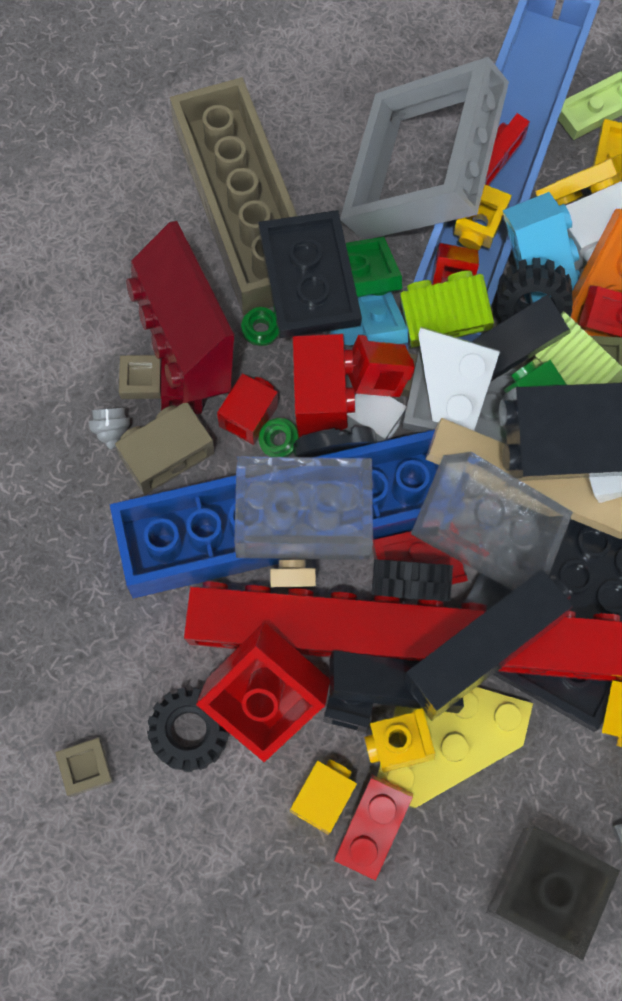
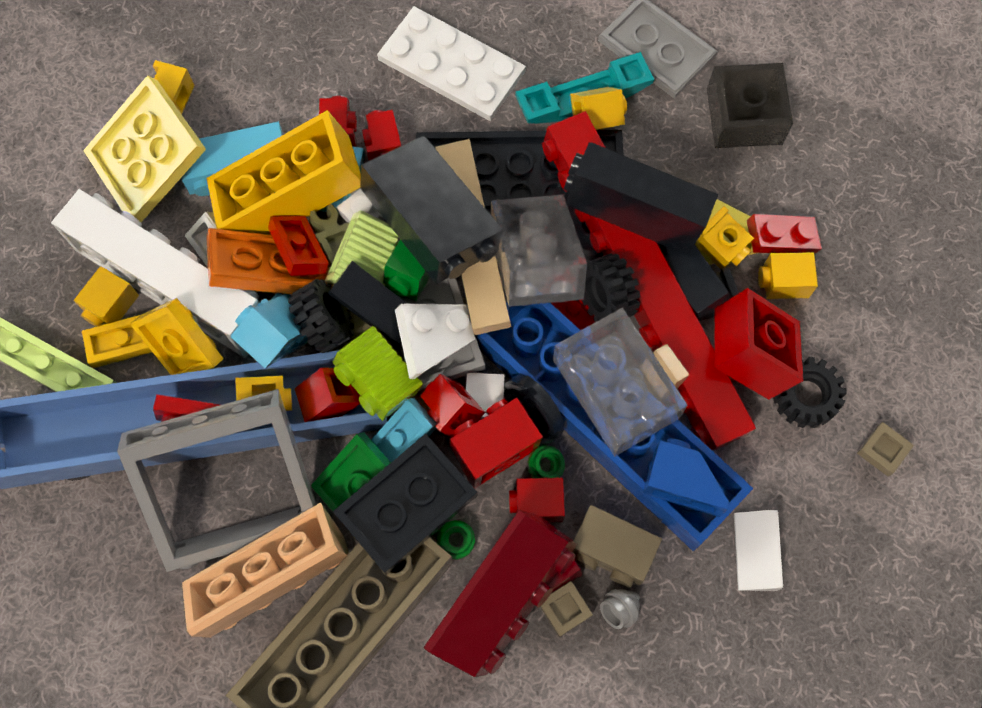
camera: 115 degrees left, 0 degrees up
(76, 576) = (758, 551): none -> white slope
(174, 515) = (684, 479): none -> blue slope
(327, 146) = (262, 572): none -> light nougat slope

